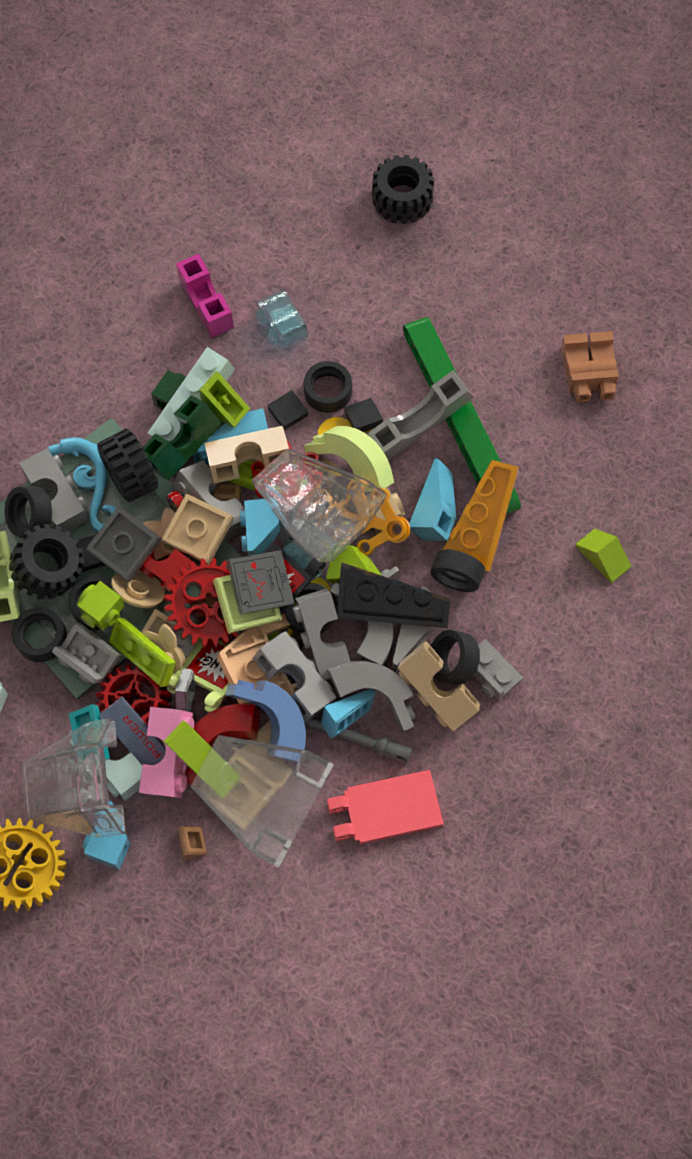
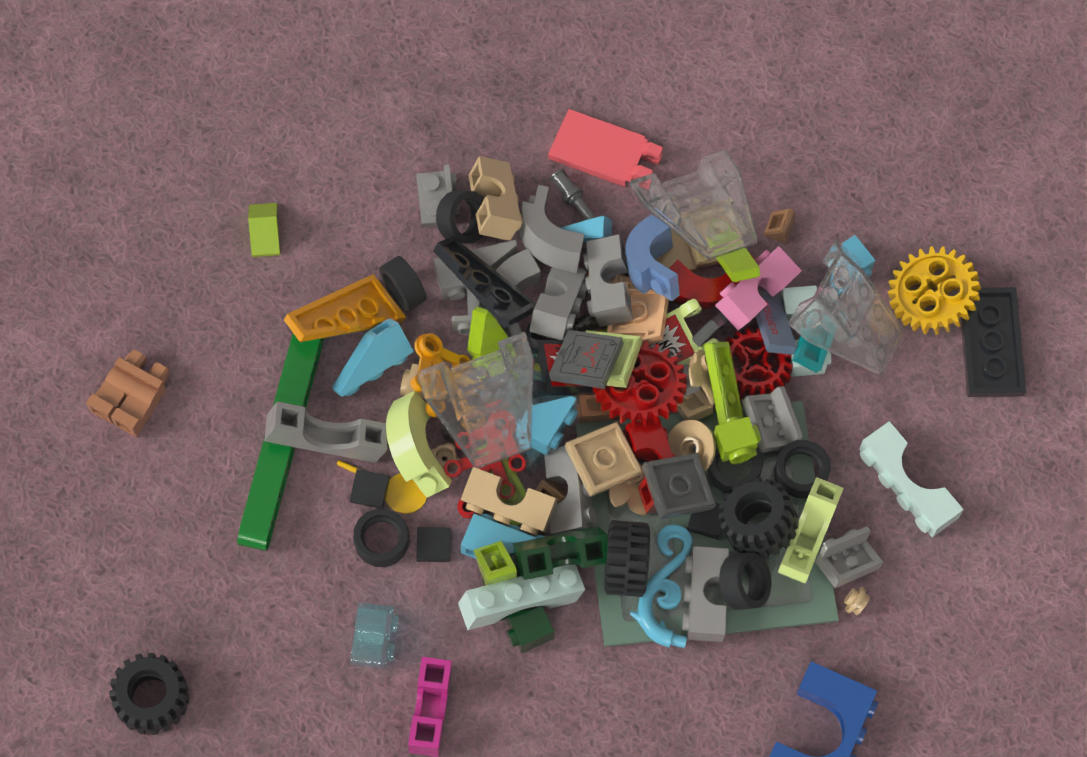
camera: 150 degrees left, 0 degrees up
(174, 500) = (601, 506): red tile -> none

